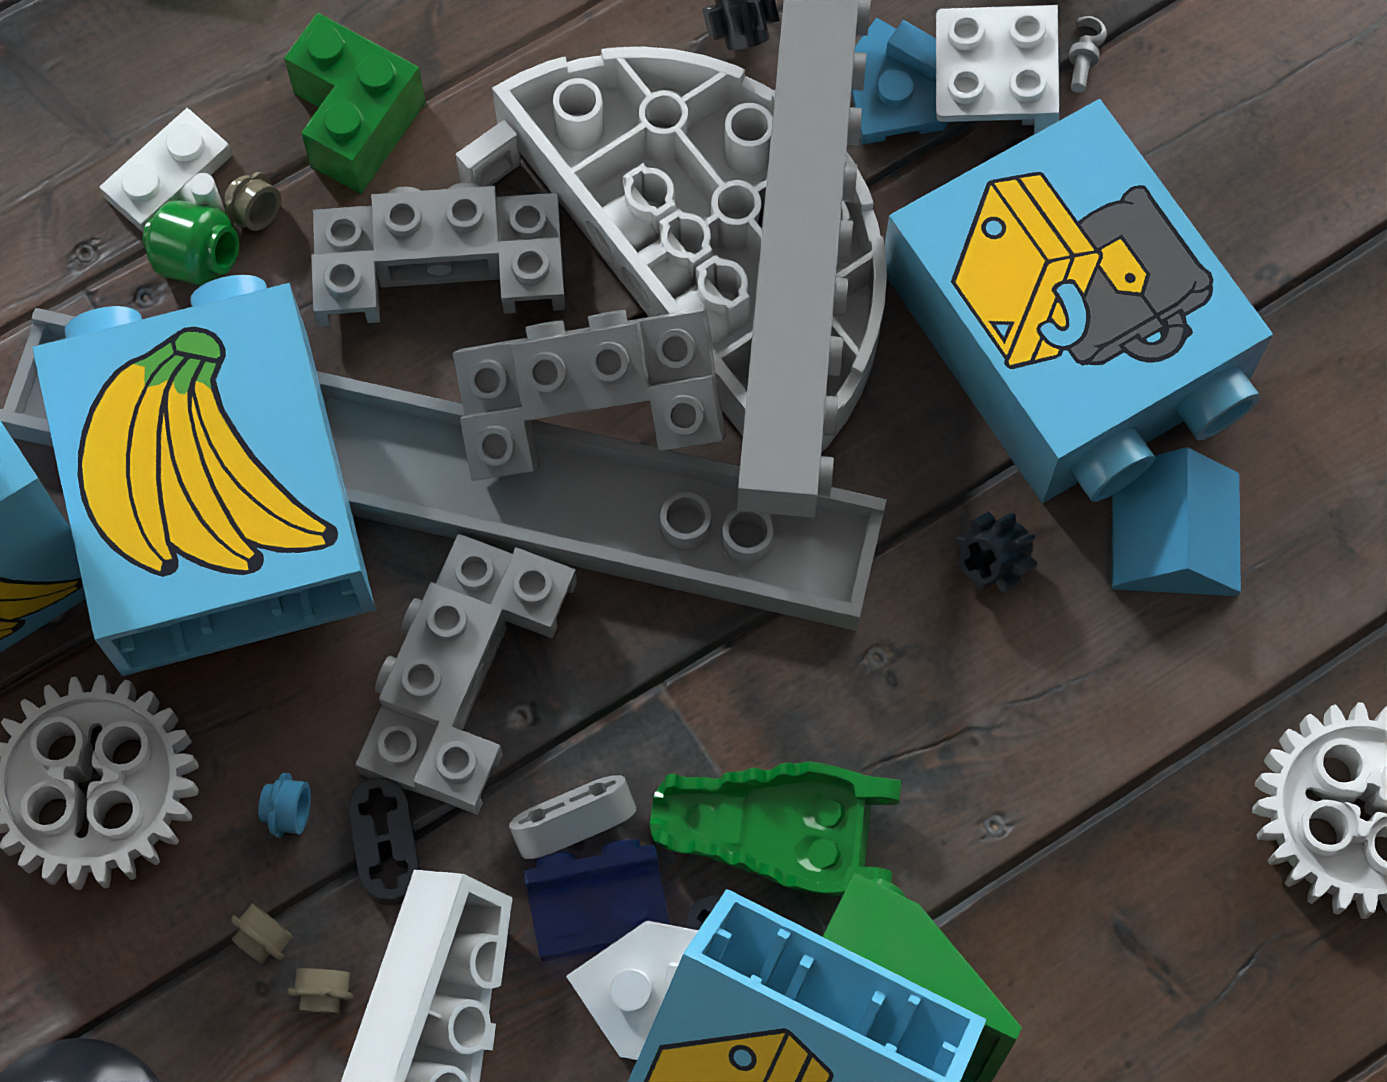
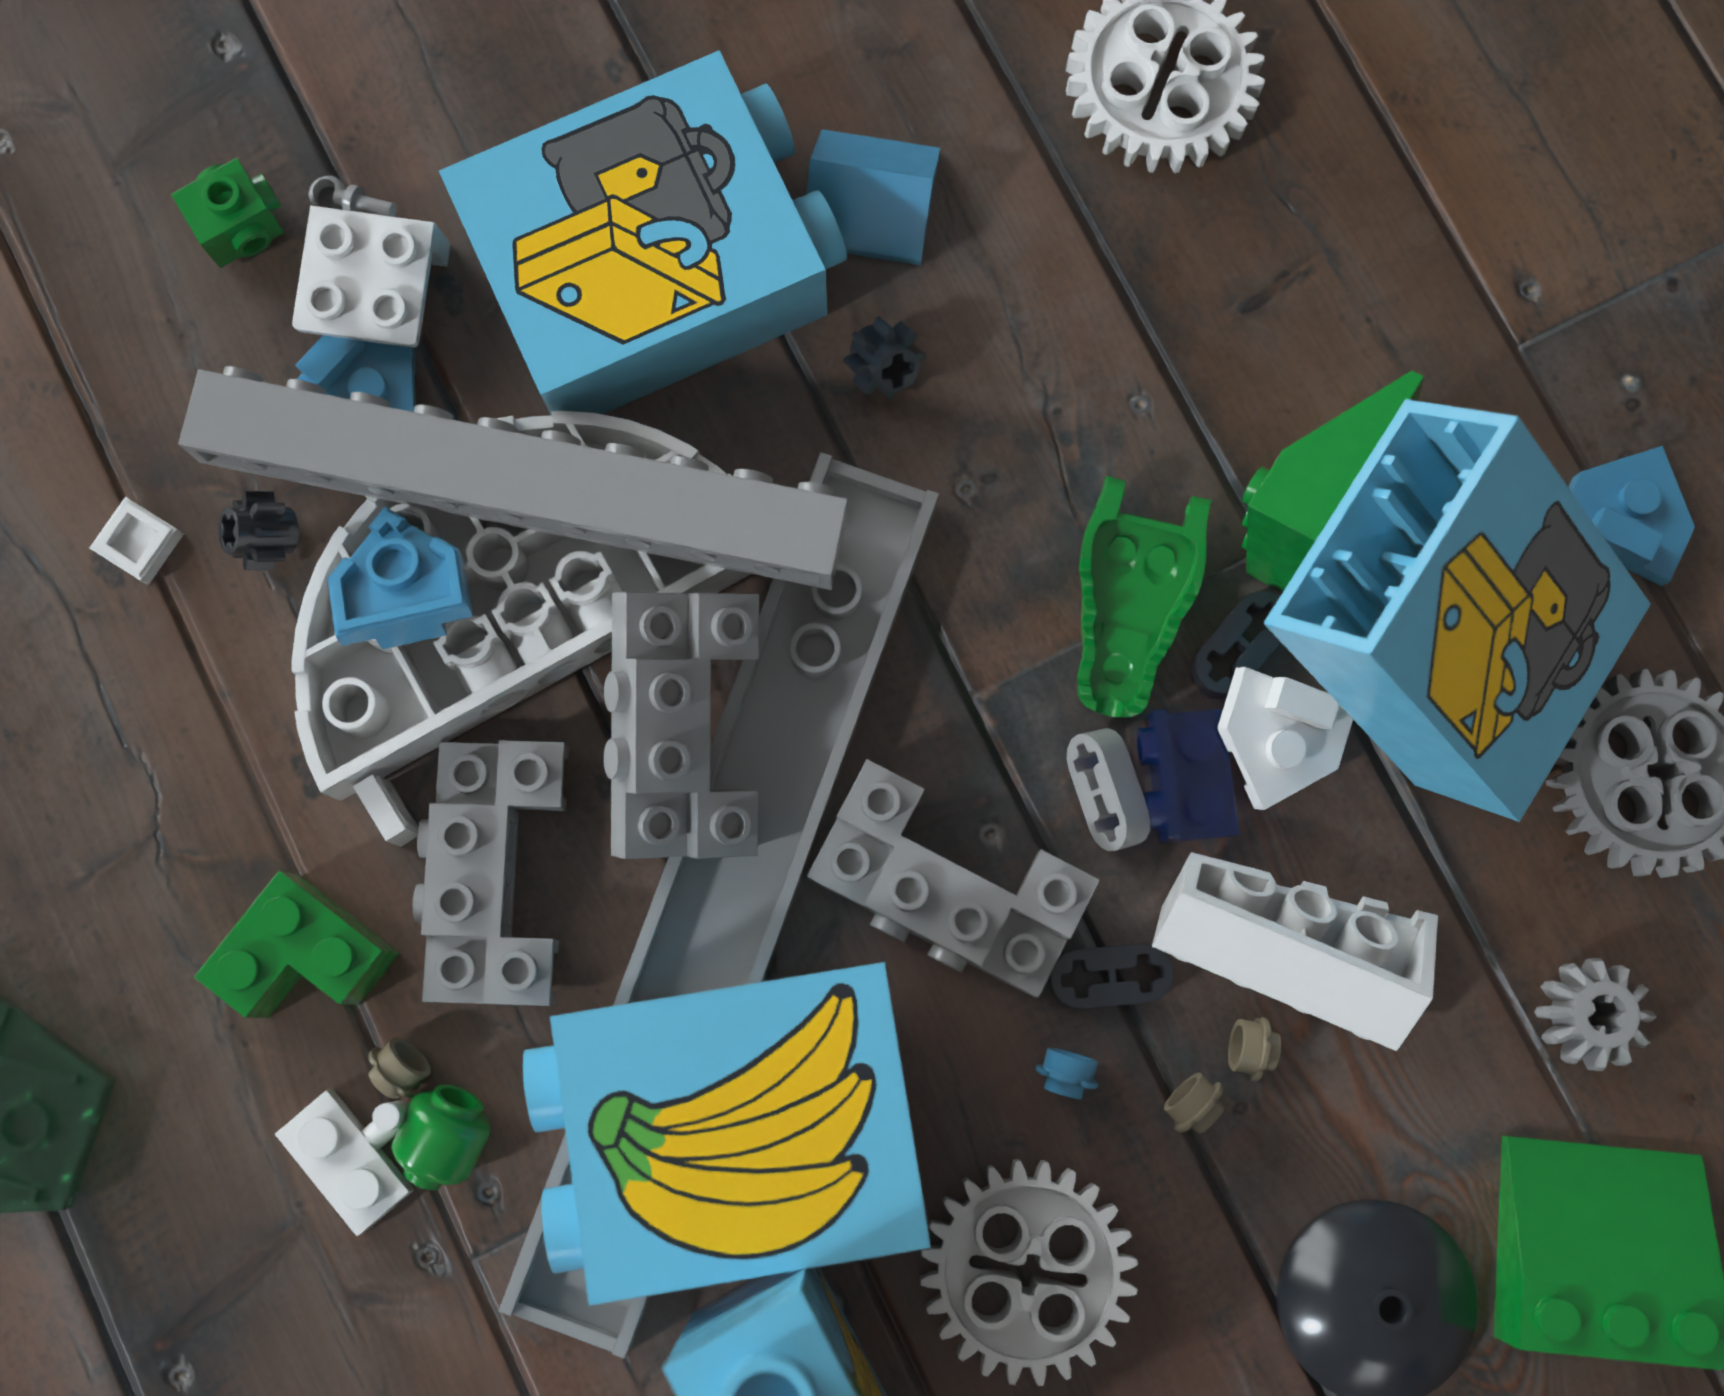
camera: 85 degrees left, 10 degrees up
(688, 119) = (398, 586): none -> dark azure plate

